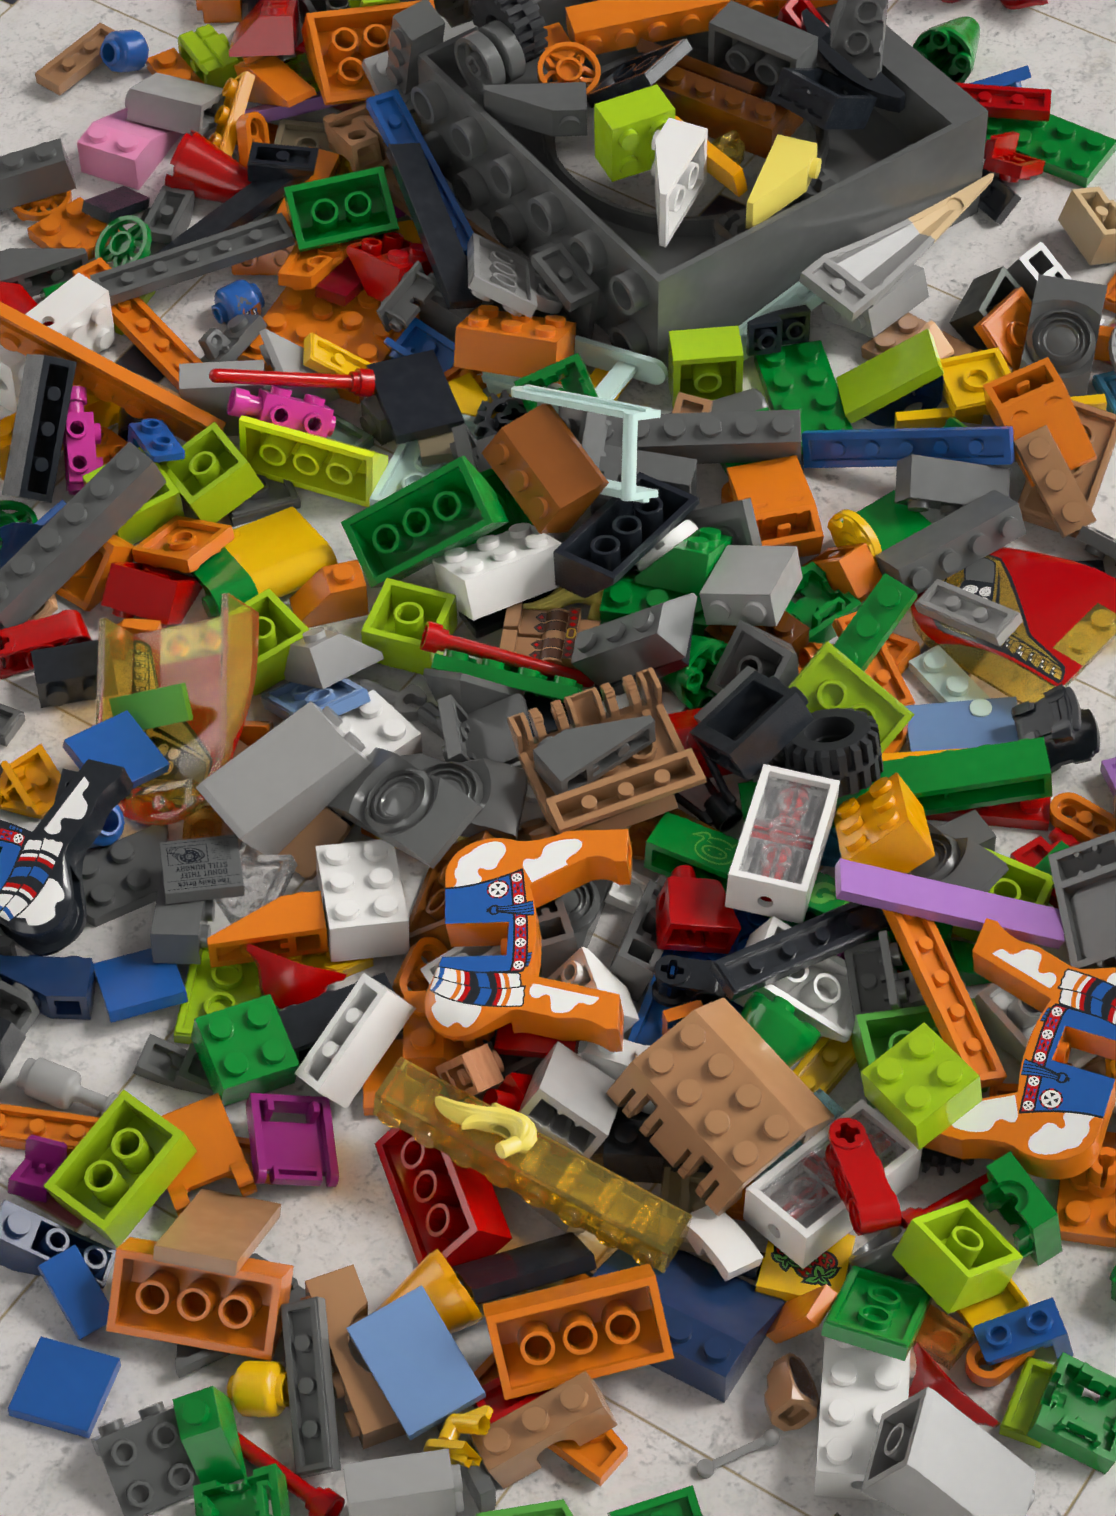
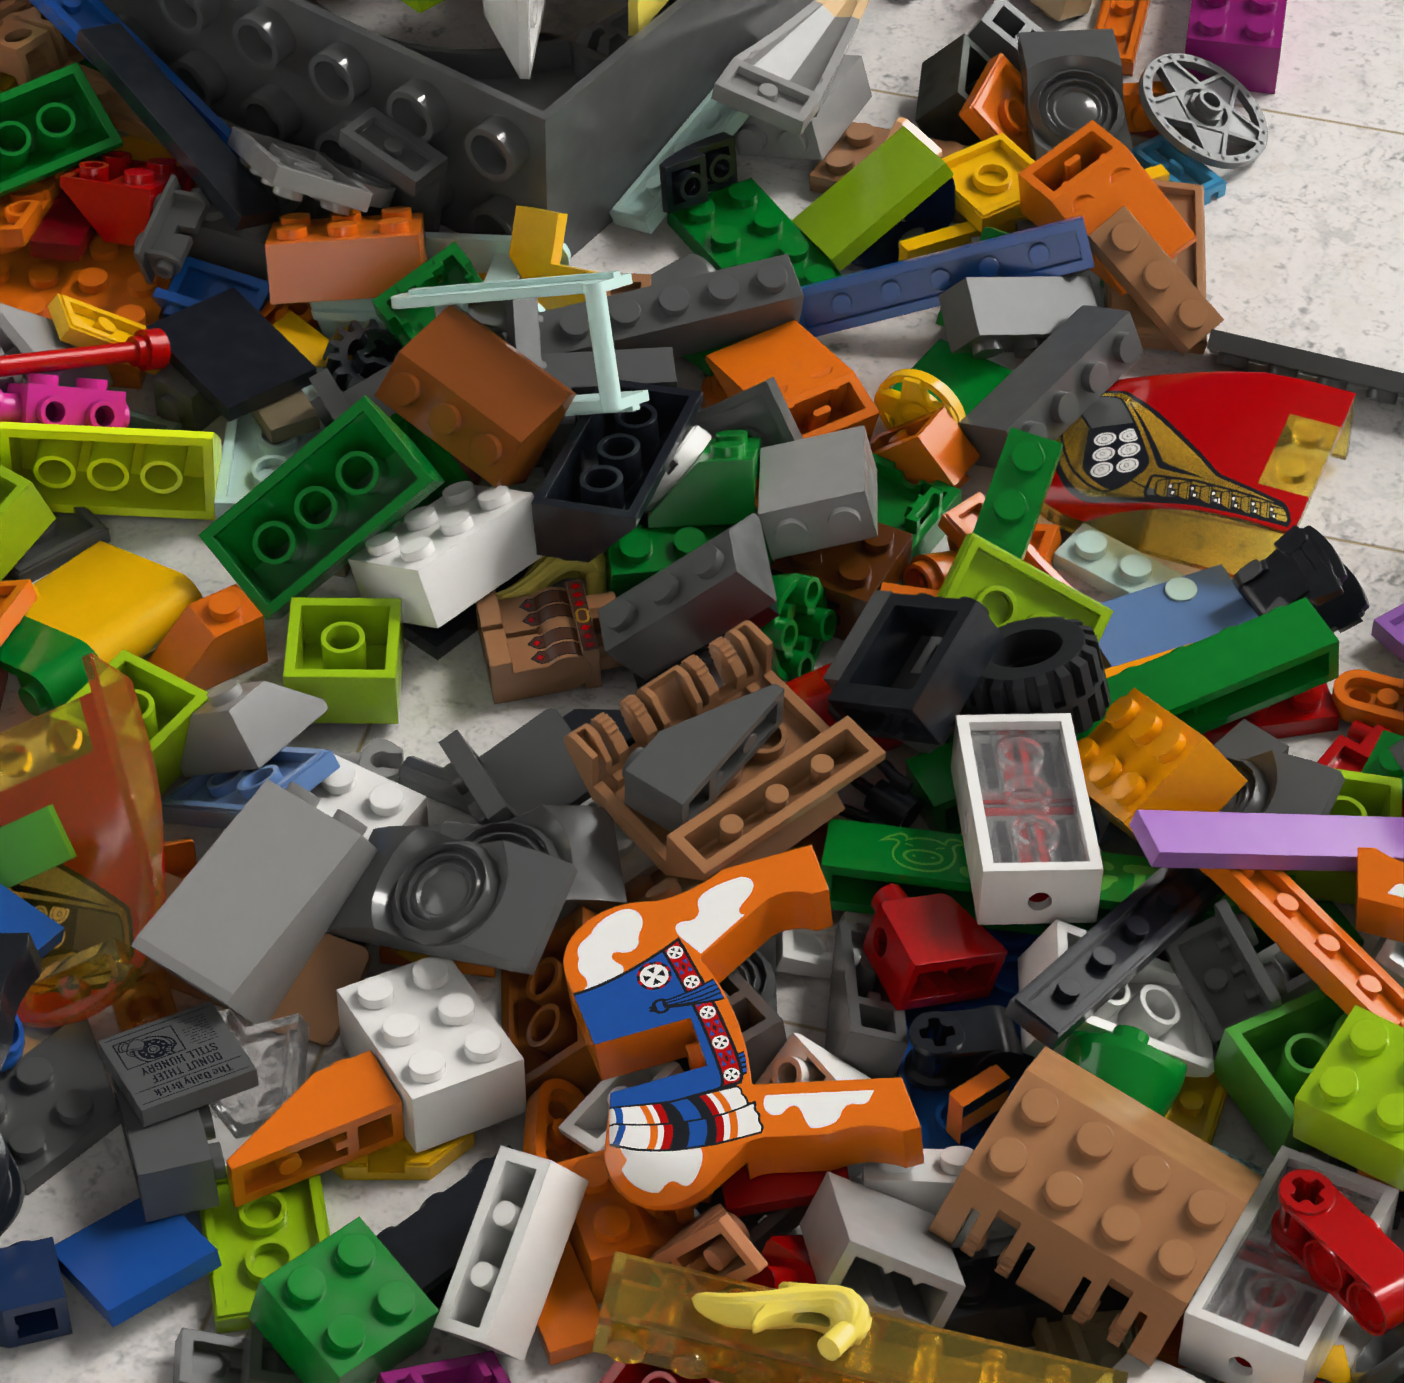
camera: 20 degrees left, 5 degrees down
(288, 980) = (370, 1189): red hat -> none
(439, 639) = (401, 659): red piece -> none
(467, 690) = (477, 717): dark grey slope -> none
(525, 679) = (502, 697): green plate -> none
(641, 370) = (538, 250): none -> yellow tile
(705, 362) = (621, 225): lime brick -> none
(757, 650) = (848, 582): dark grey slope -> none
(968, 612) = (1127, 466): light grey tile -> none

